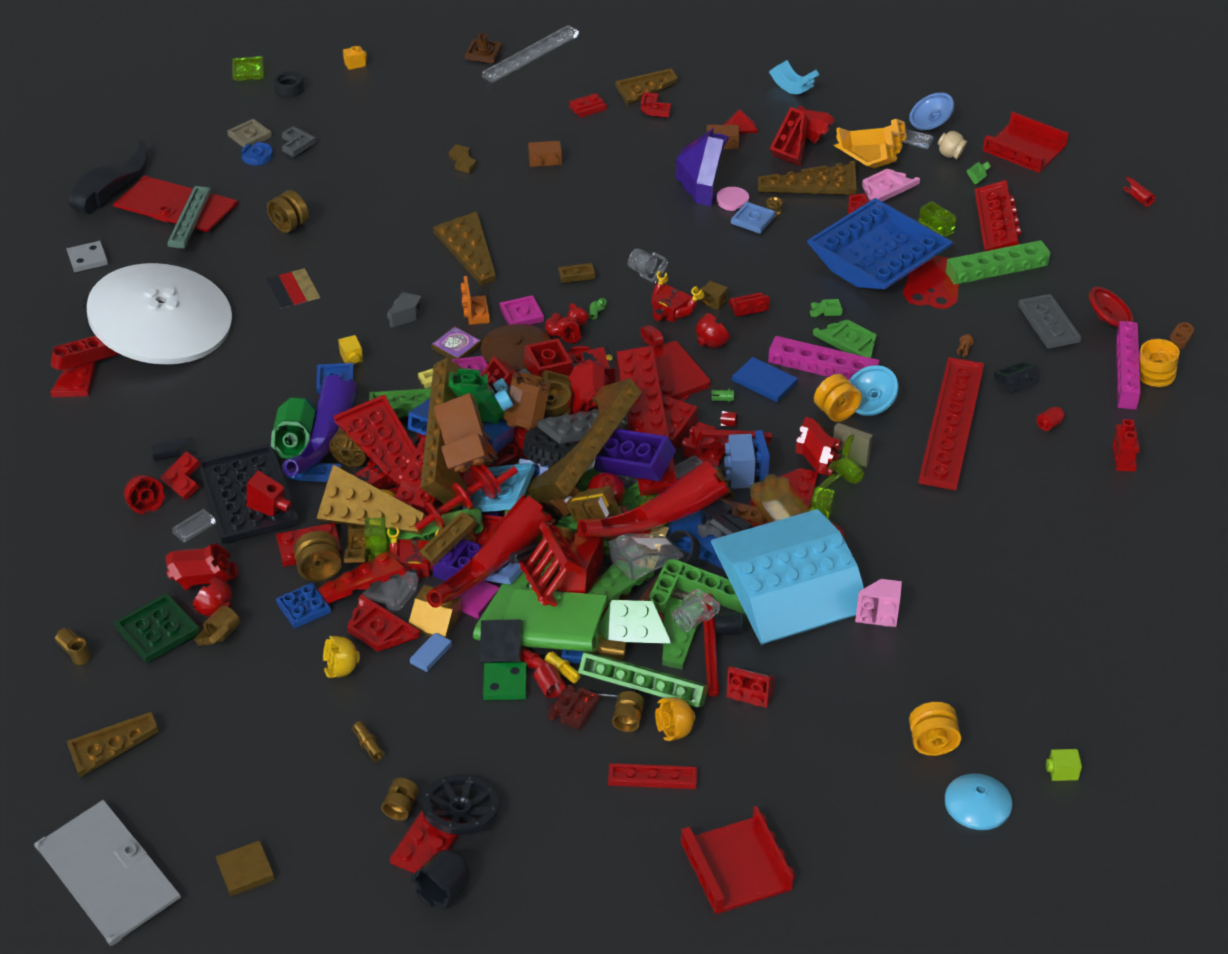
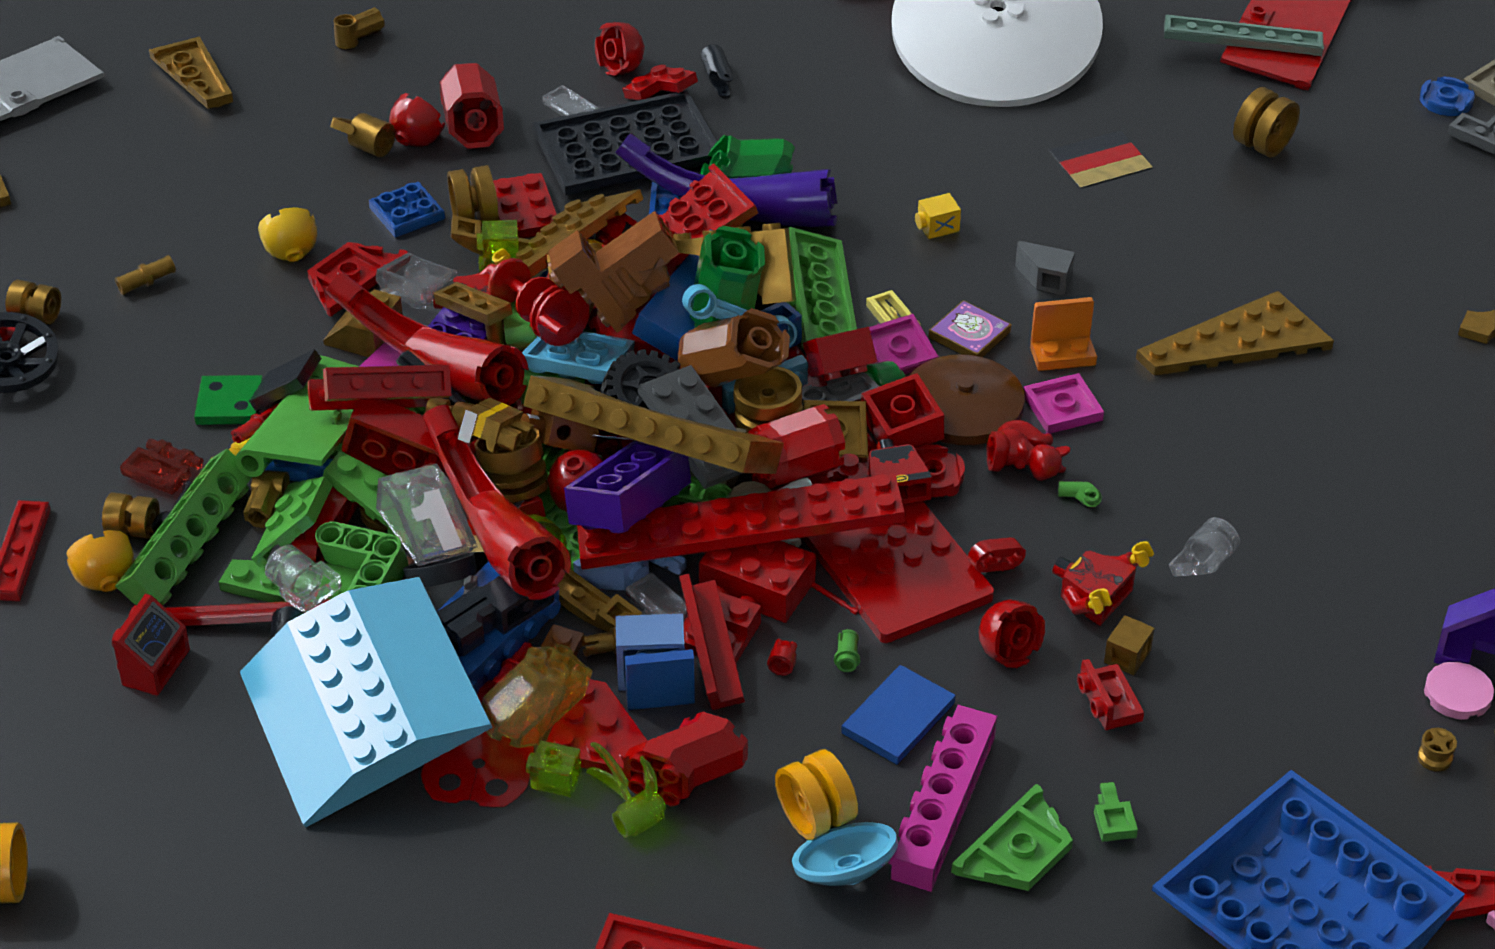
camera: 90 degrees right, 0 degrees up
(156, 627) = (377, 85): dark green plate -> none
(266, 495) = (589, 138): red torso -> none
(346, 371) = (881, 210): blue tile -> none
(360, 578) = (439, 252): red wing -> none
(430, 652) = (297, 327): medium blue tile -> none
(549, 680) = (210, 436): red piece -> none
(576, 272) = (1175, 465): pearl gold plate -> none
(753, 217) = (1394, 716): medium blue plate -> none
(860, 446) = (688, 808): dark tan tile -> none
(879, 603) = (283, 820): bright pink slope -> none

